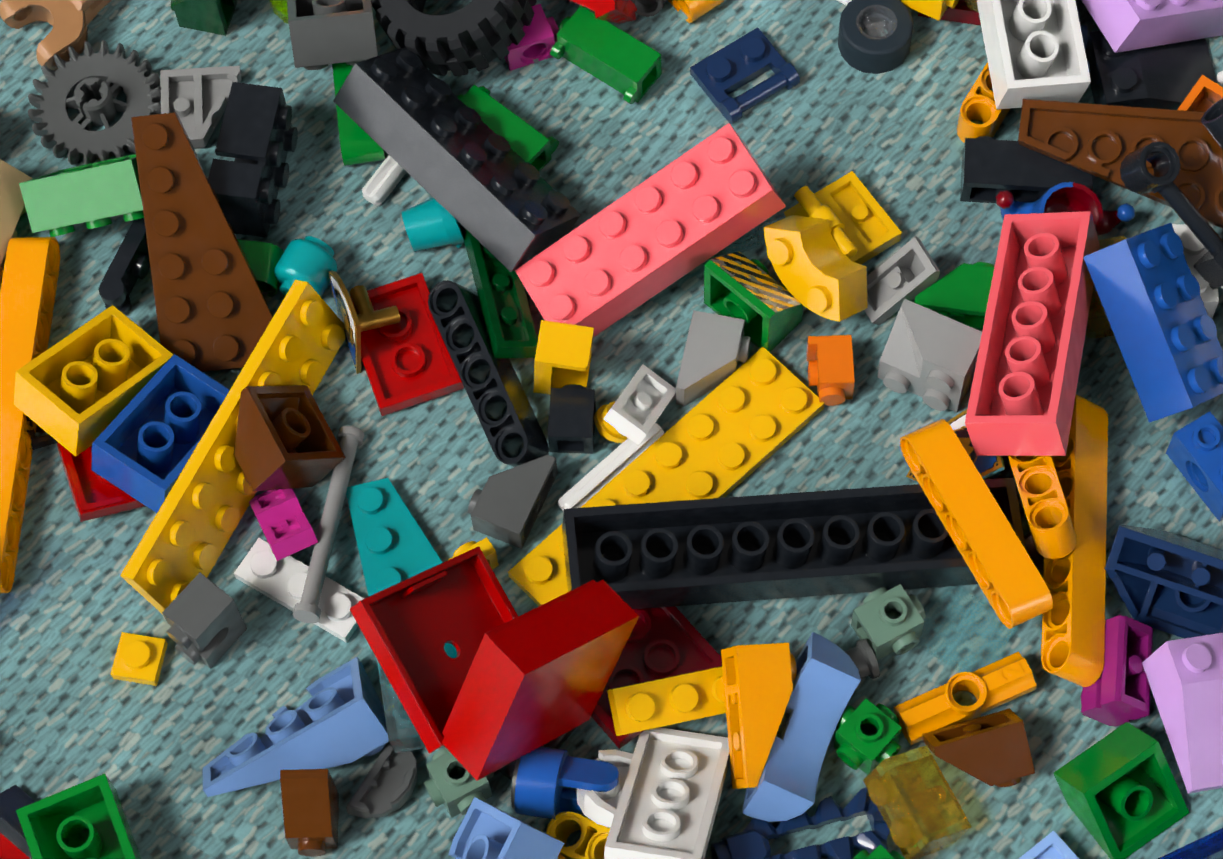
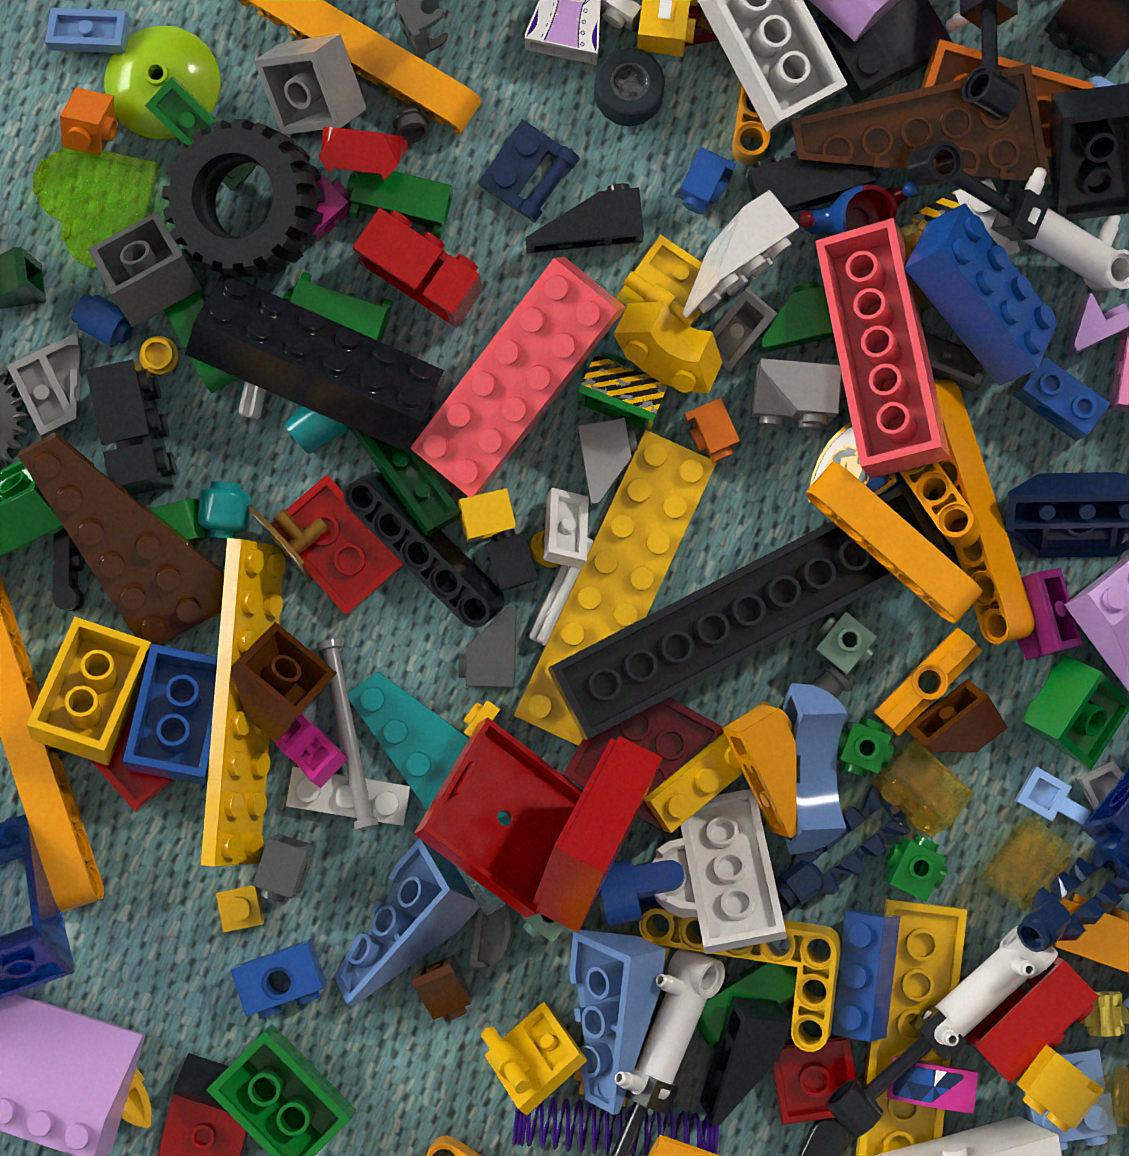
camera: 25 degrees left, 20 degrees up
(124, 726) = (255, 982): none -> blue brick
(270, 62) = (101, 320): none -> blue brick
(310, 114) = (159, 355): none -> yellow plate
(597, 114) = (419, 266): none -> red piece
(794, 138) = (601, 220): none -> black slope
(918, 138) = (705, 180): none -> blue brick
(927, 203) = (742, 250): none -> white slope
(1108, 391) = (953, 362): none -> dark grey hinge

